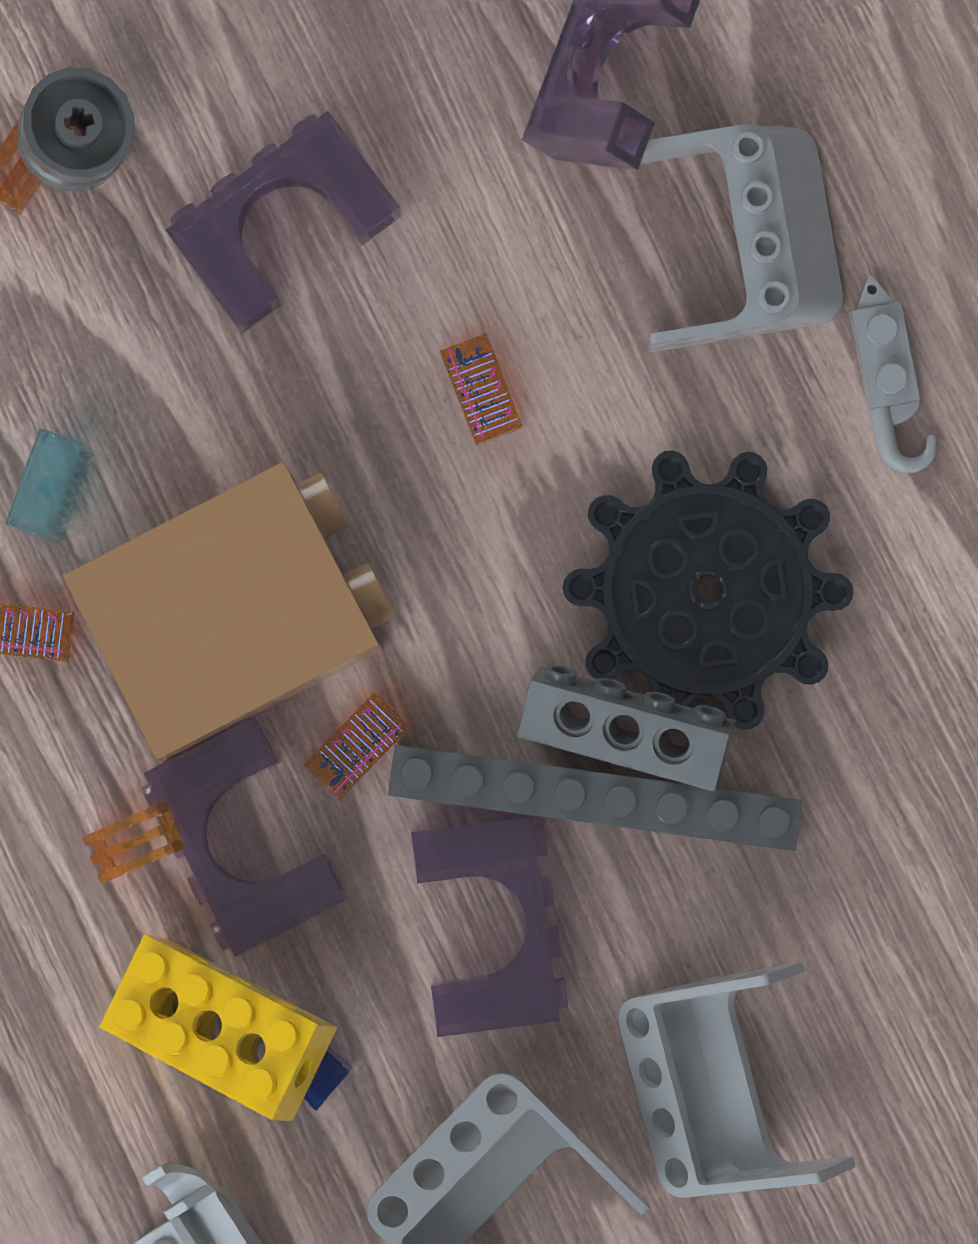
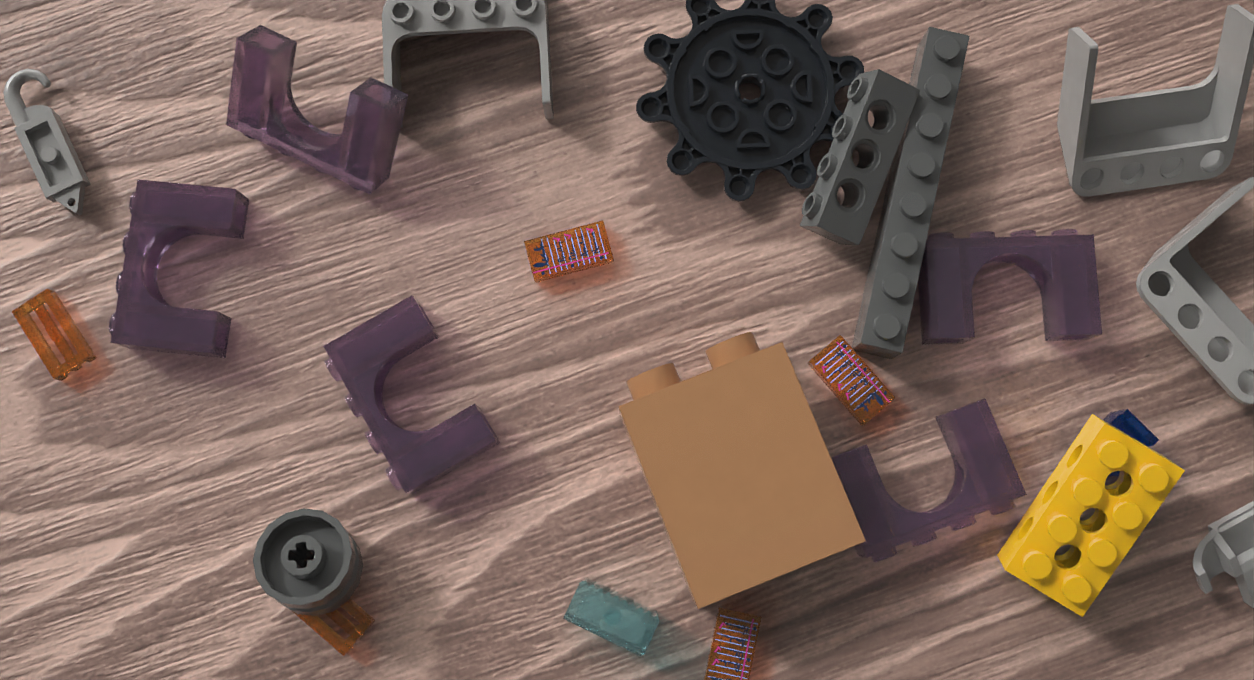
camera: 85 degrees left, 5 degrees down
(105, 854) = (928, 599): clear orange tile -> none

